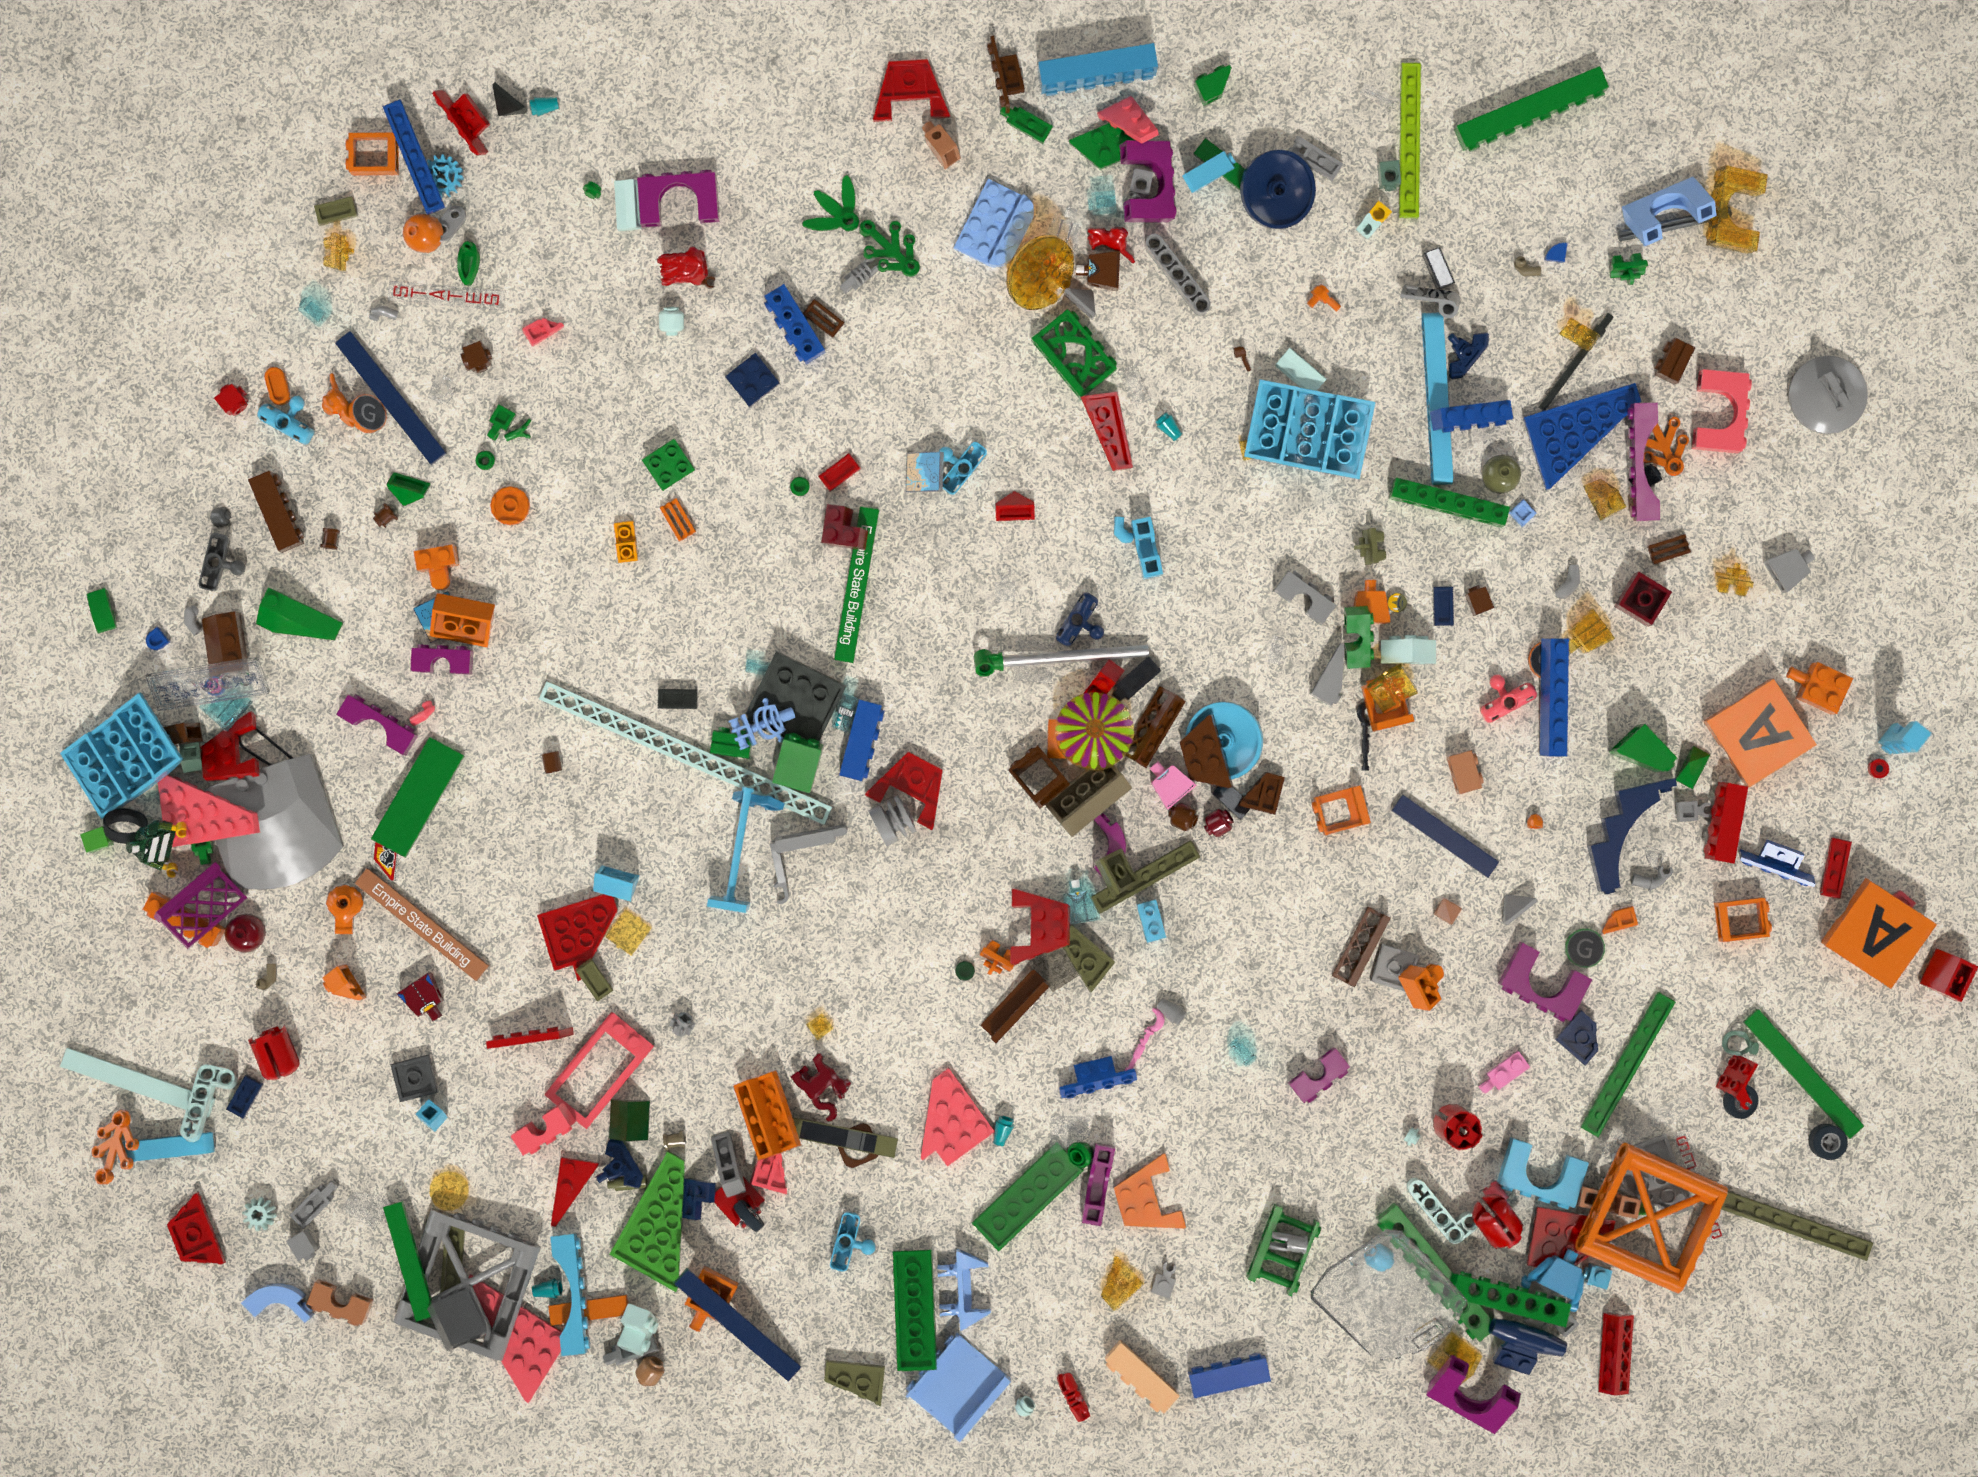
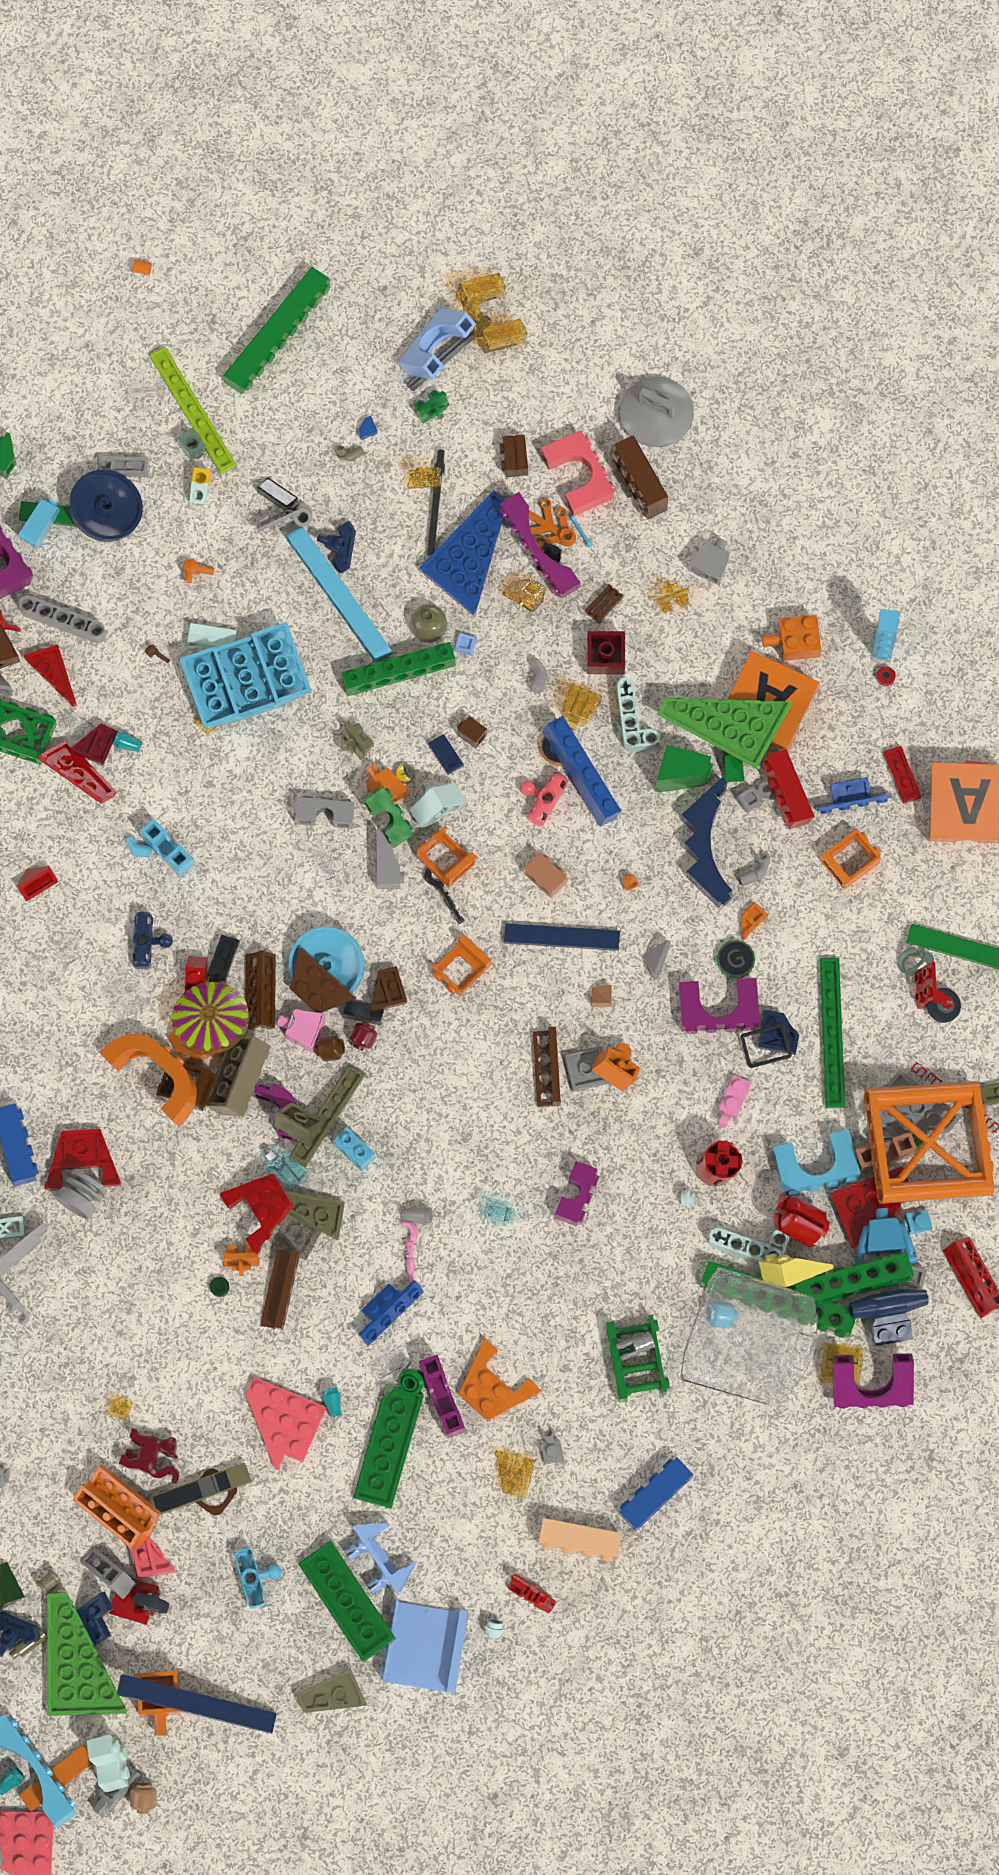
camera: 30 degrees left, 15 degrees down
(986, 662) = (94, 1010): flat silver piece -> none
(1029, 793) = (136, 1045): none -> orange arch
(1140, 412) = (96, 744): none -> dark red wing
(1141, 314) = (50, 666): none -> red wing
(1392, 688) = (441, 840): clear yellow slope -> none
(1462, 1261) = (789, 1271): none -> light yellow slope
(1471, 415) = (373, 589): blue brick -> none
(1547, 1022) = (770, 1060): none -> black piece
(1631, 671) = (632, 715): none -> light aqua beam
(1690, 483) = (588, 543): none -> medium azure hinge
(1713, 738) = (734, 726): none -> bright green wing
(1774, 451) = (640, 477): none -> reddish brown brick

